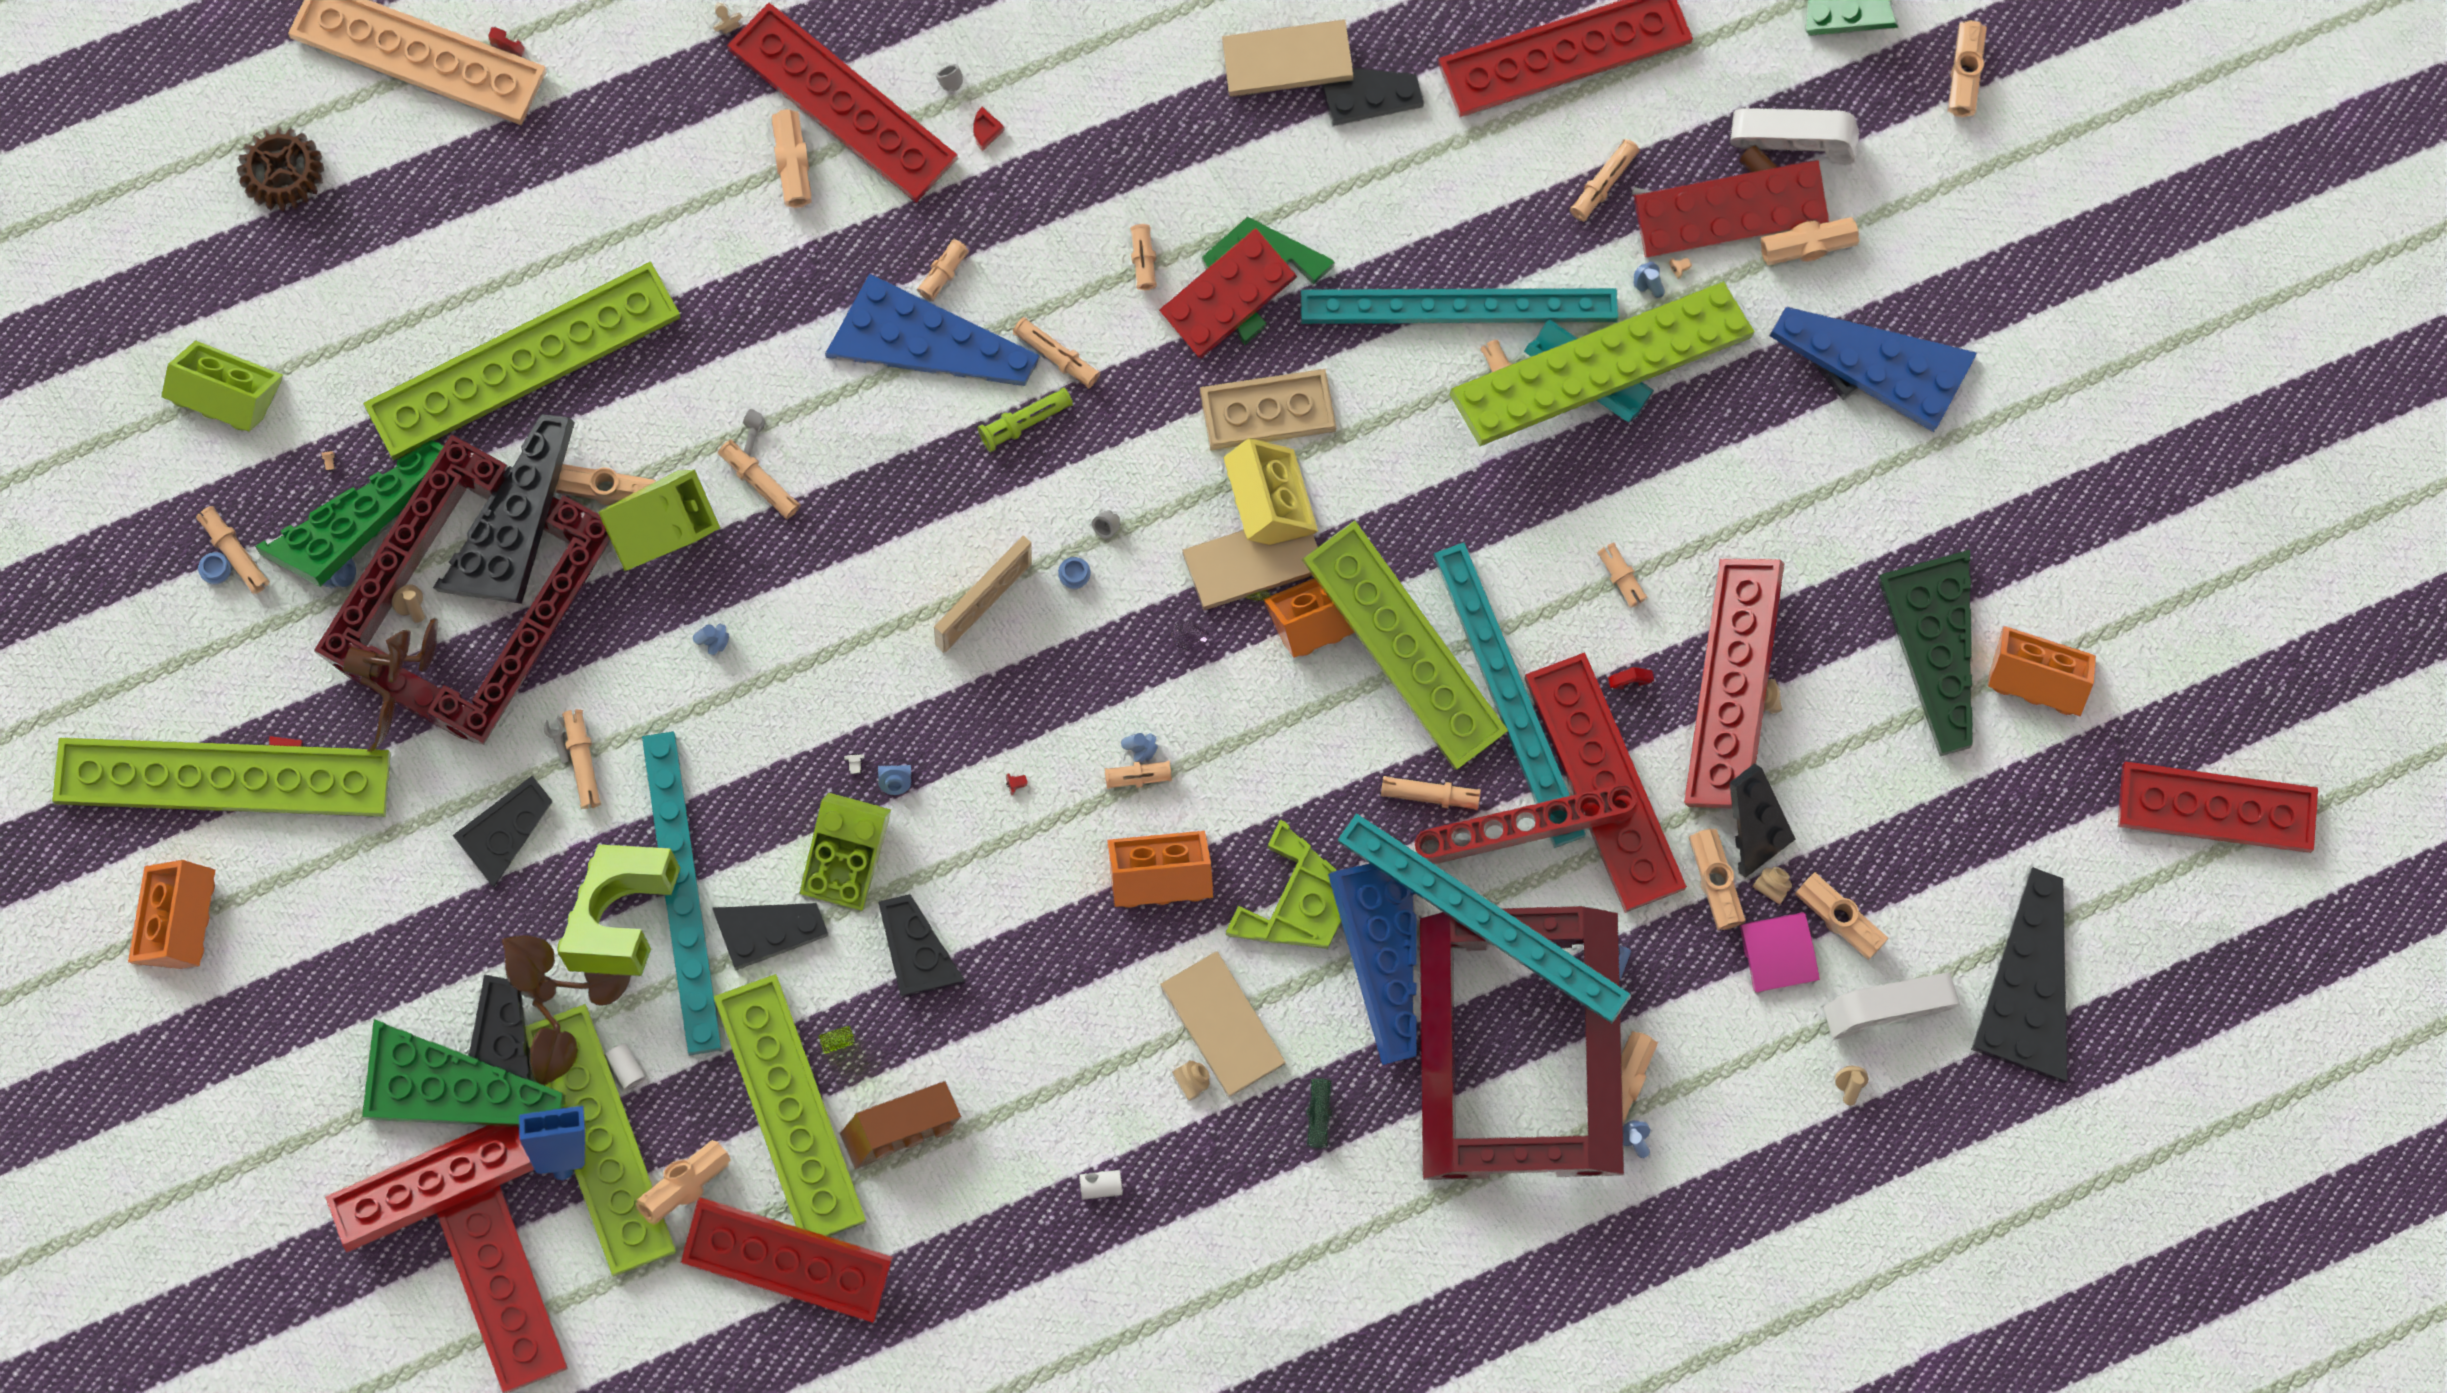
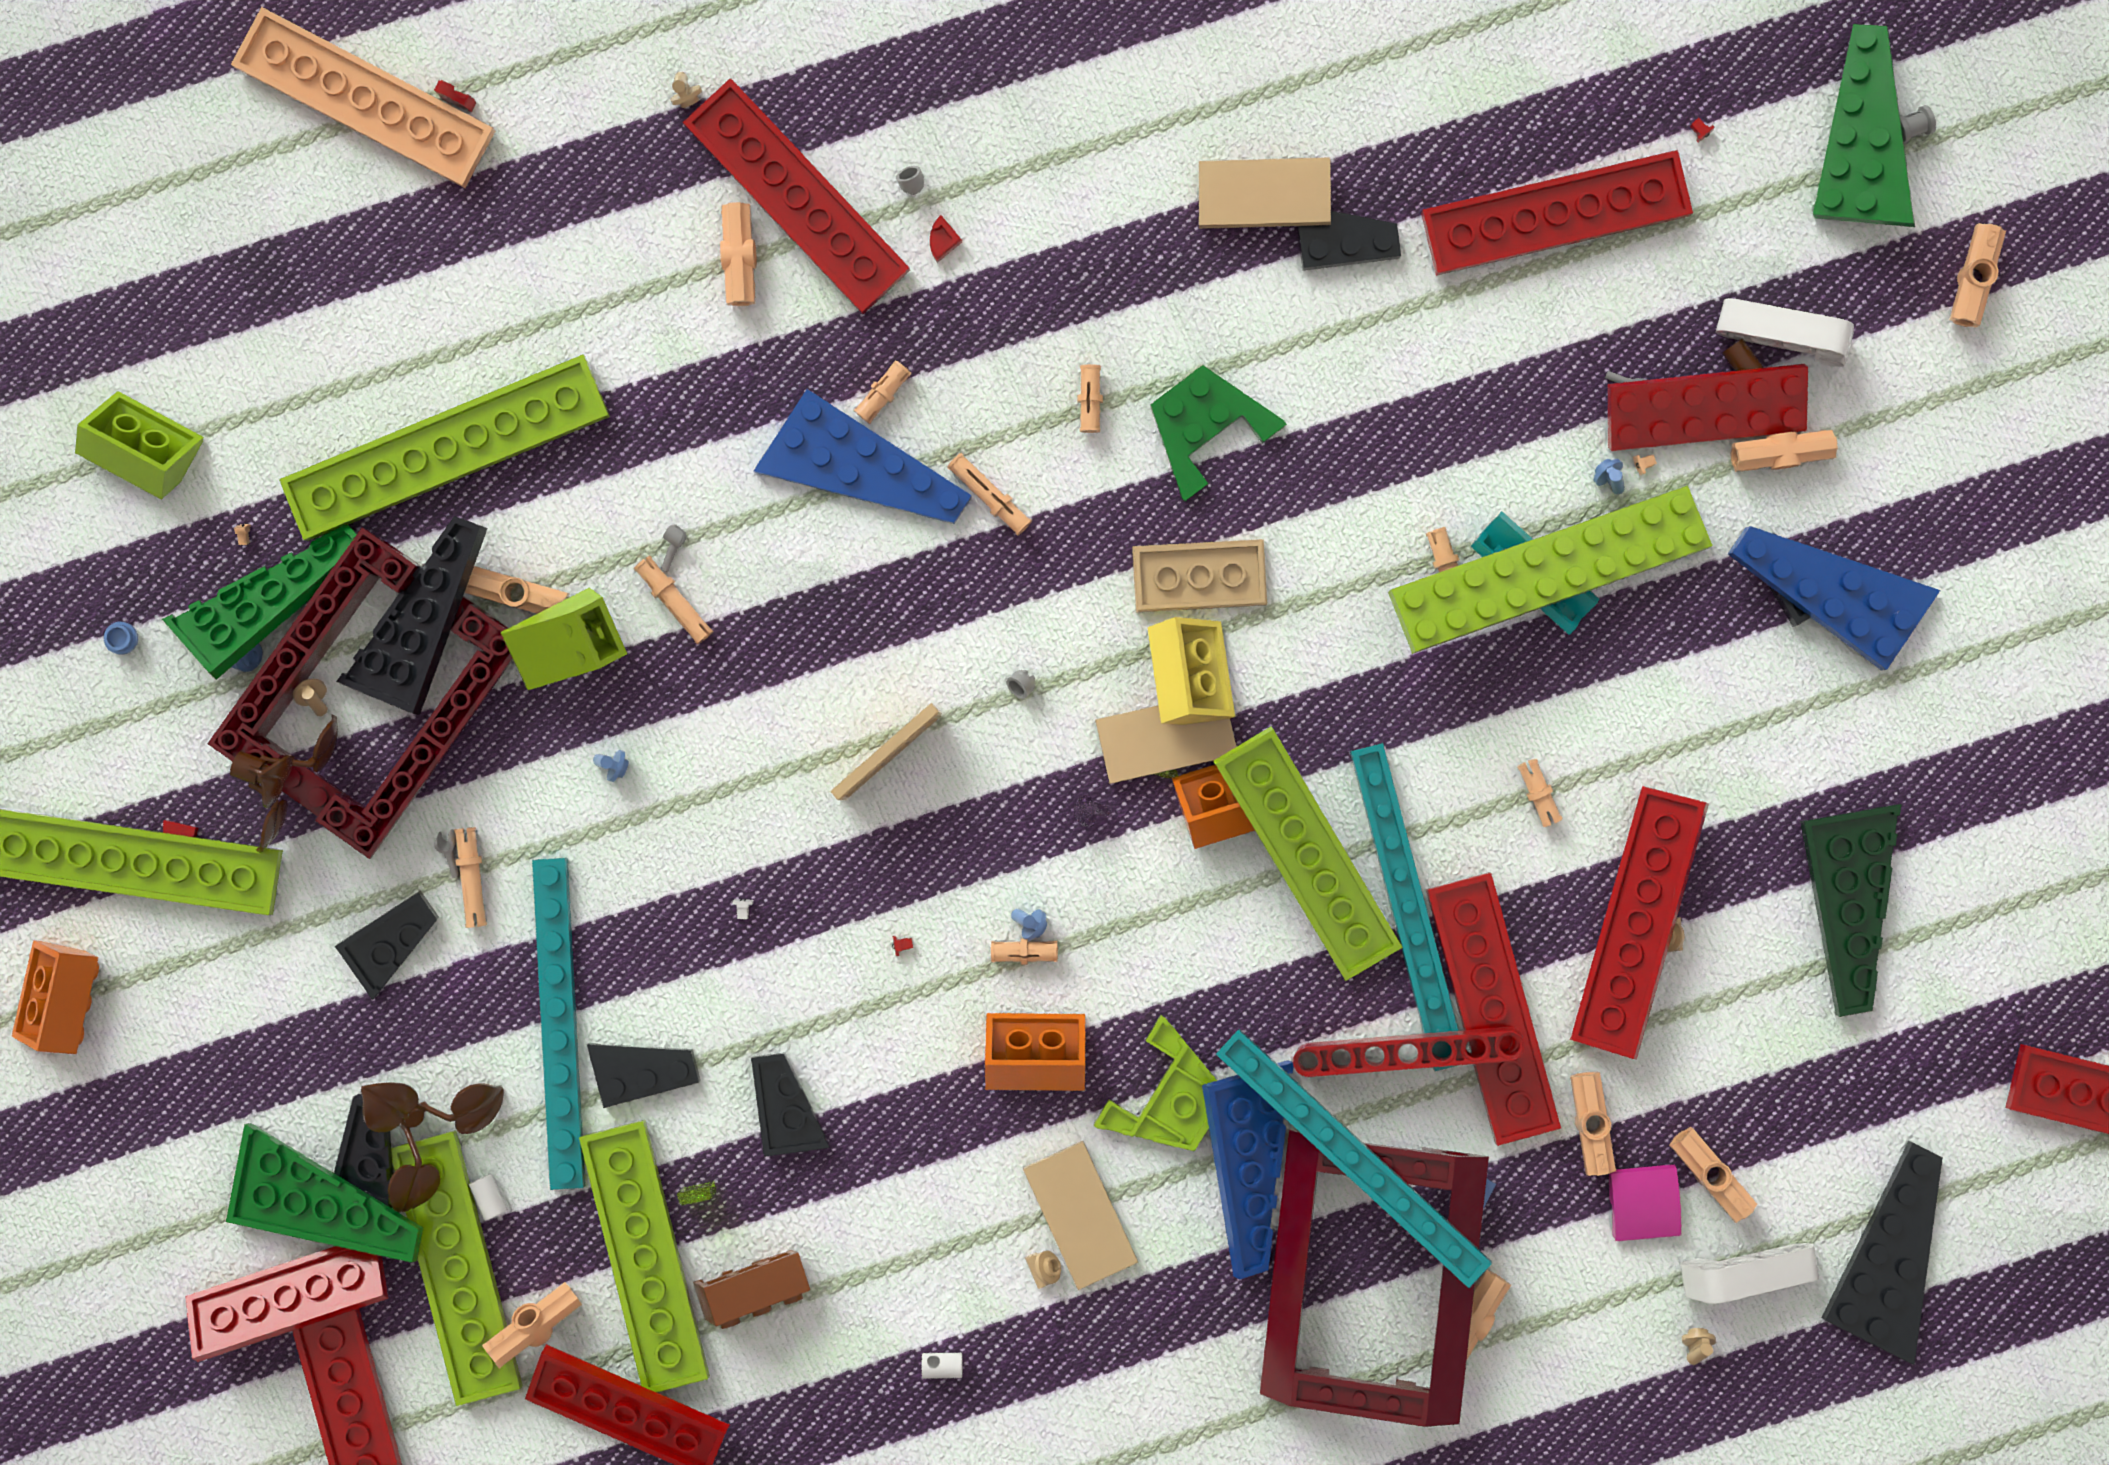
camera: 15 degrees right, 15 degrees up
(224, 539) = (132, 610): light nougat pin -> none
(290, 149) = (190, 197): reddish brown gear -> none
(554, 1140) = (409, 1278): blue torso -> none
(611, 875) = (486, 1006): lime arch -> none
(844, 851) = (723, 999): lime slope -> none
(894, 779) = (780, 929): medium blue plate -> none
(1012, 429) = (935, 568): lime pin -> none
(1074, 573) = (983, 731): medium blue plate -> none
(1228, 293) = (1172, 449): red plate -> none
(1319, 1113) = (1165, 1317): clear green pin -> none
(1431, 793) = (1319, 1002): light nougat pin -> none
(1458, 305) = (1410, 485): teal plate -> none
(1597, 189) = (1569, 371): light nougat pin -> none
(1631, 675) = (1534, 903): red tile -> none
(1635, 1134) = (1474, 1371): medium blue plate -> none
(1759, 818) = (1644, 1072): black wing -> none
(1773, 884) = (1649, 1131): tan plate -> none
(2042, 671) = (1956, 940): orange slope -> none

